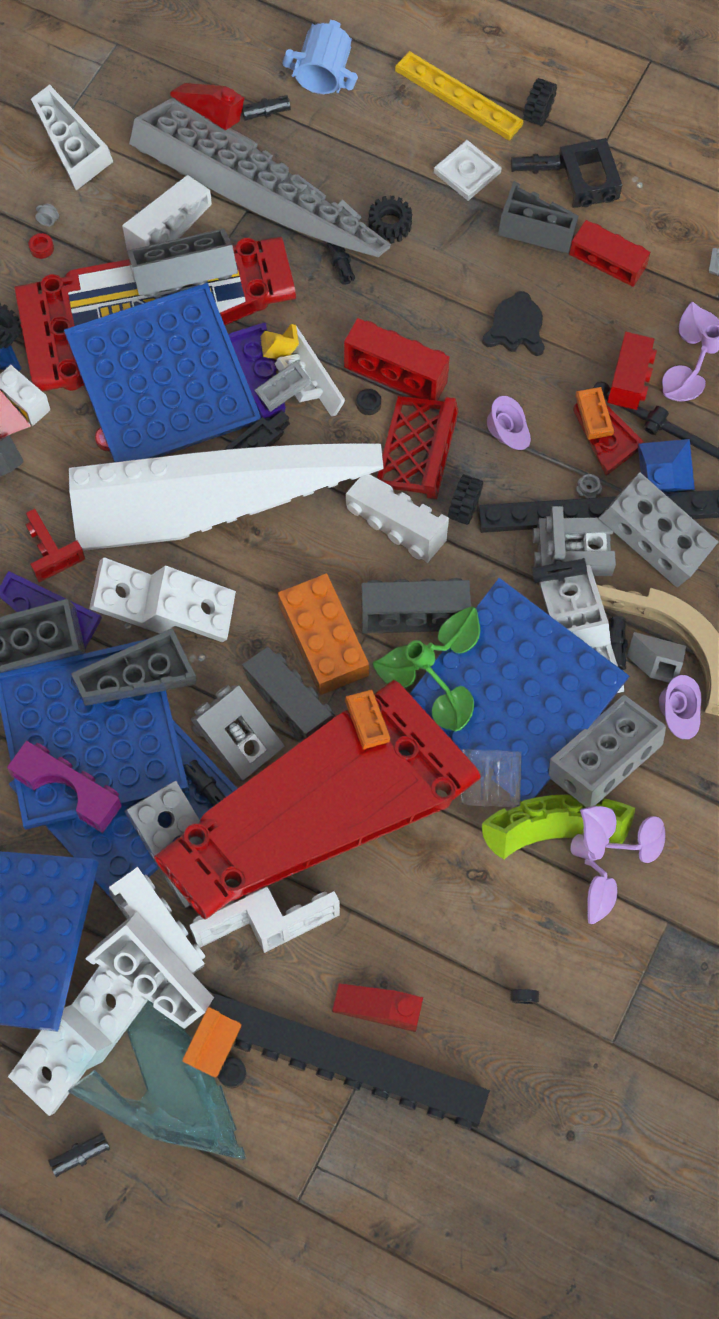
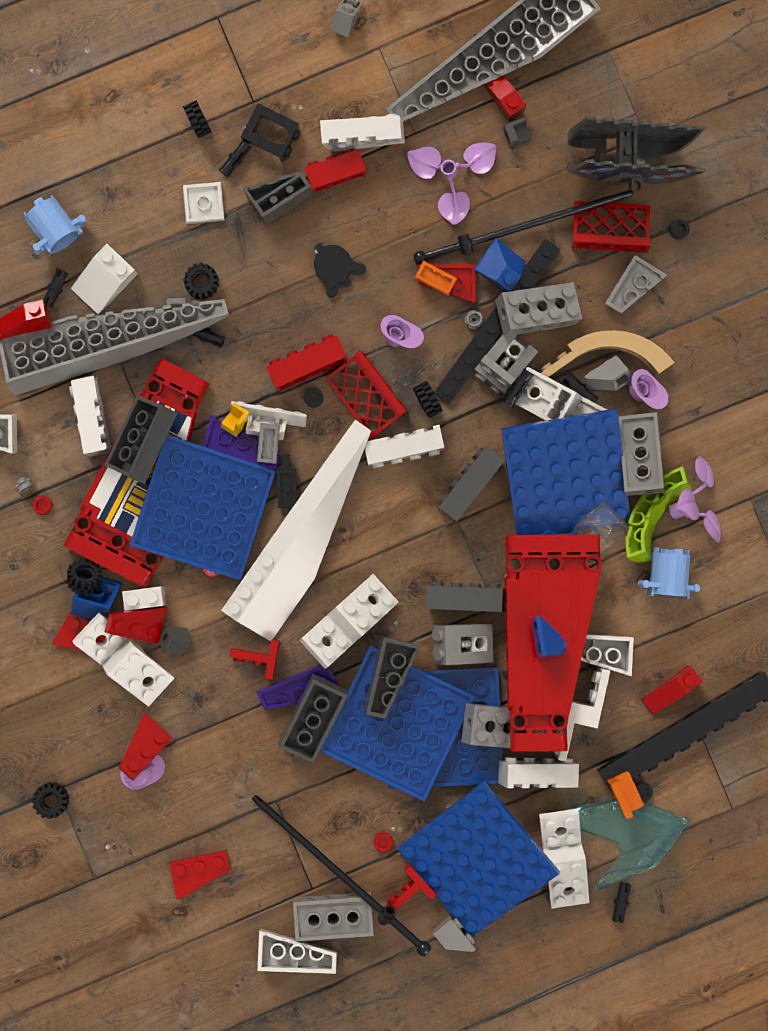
camera: 55 degrees left, 20 degrees up
(36, 768) = (446, 755): magenta arch -> none
(152, 971) = (566, 798): white wedge -> none
(205, 785) = (480, 684): black pin -> none
(311, 790) = (547, 639): none -> blue slope
(314, 139) = (103, 279): none -> white slope
(323, 634) = (442, 547): orange brick -> none
(361, 893) = (609, 652): none -> white wedge
(367, 719) = (524, 573): orange plate -> none
(459, 95) = (144, 160): yellow tile -> none
(460, 634) = (497, 521): bright green plant -> none
(505, 891) = (669, 574): none -> light blue container
(524, 996) = (729, 610): black tile -> none
(632, 371) = (425, 230): red brick -> none
(668, 240) = (362, 132): none -> white wedge

